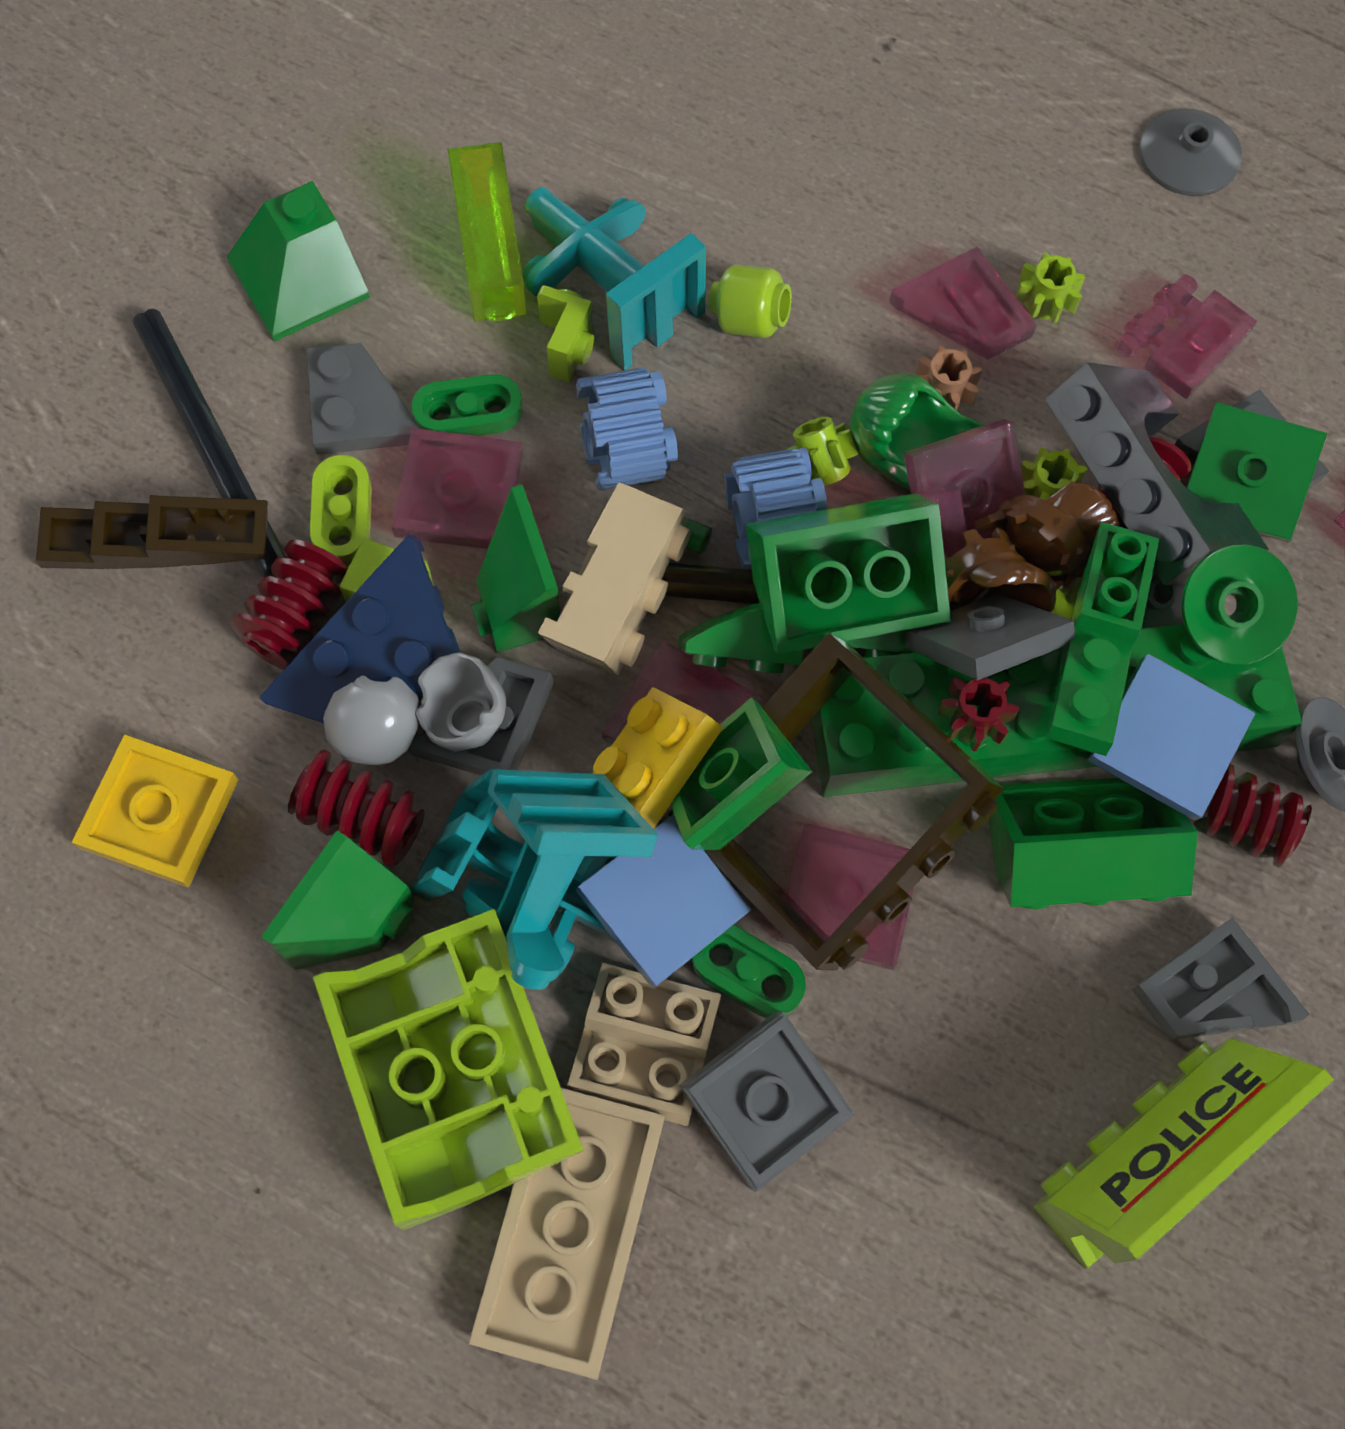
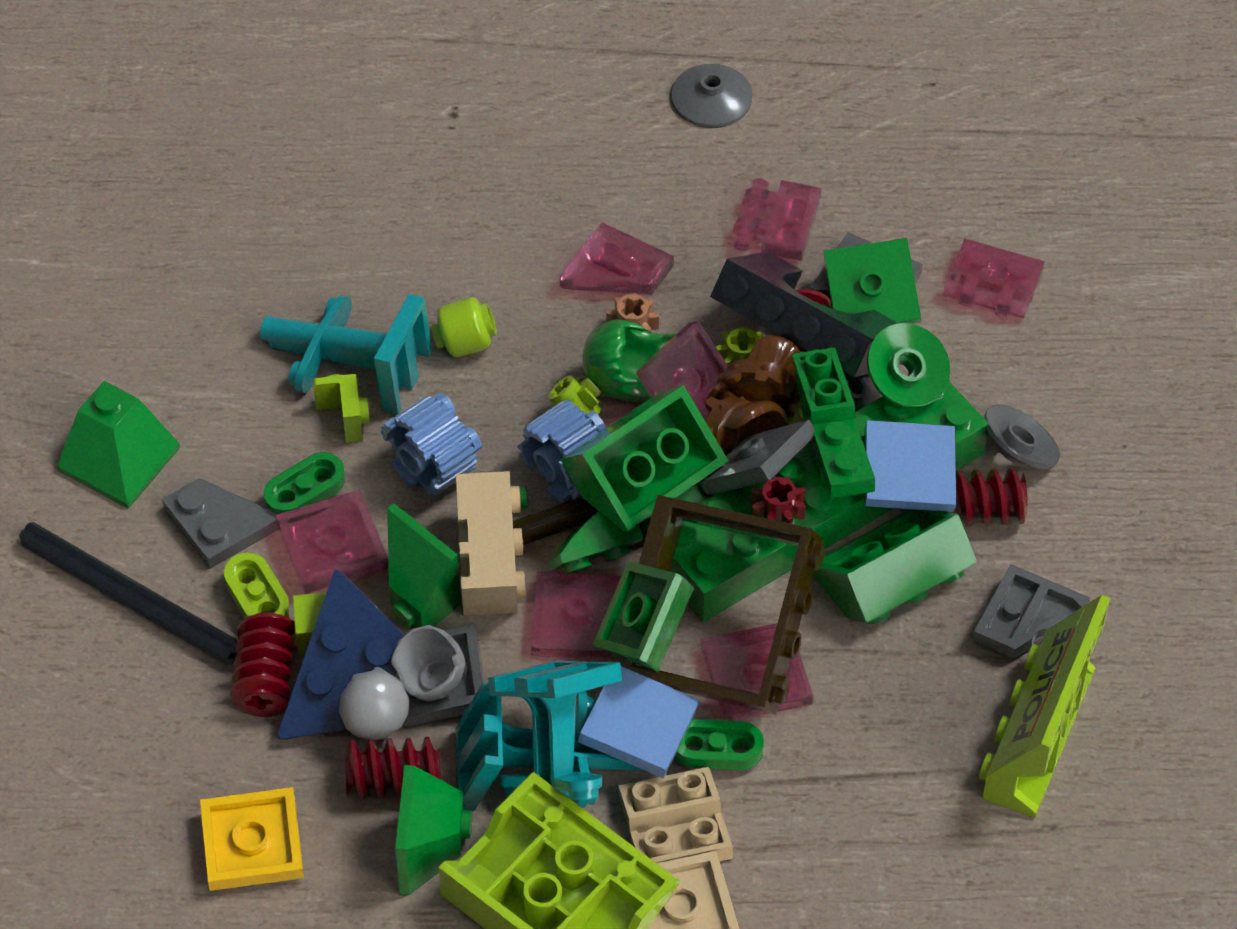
camera: 25 degrees left, 15 degrees down
(153, 534) = (132, 669): dark brown slope -> none
(487, 231) = (250, 362): clear neon green slope -> none
(657, 752) = (582, 624): yellow plate -> none
(766, 1100) = (776, 812): dark grey plate -> none
(1050, 287) = (668, 227): lime gear -> none

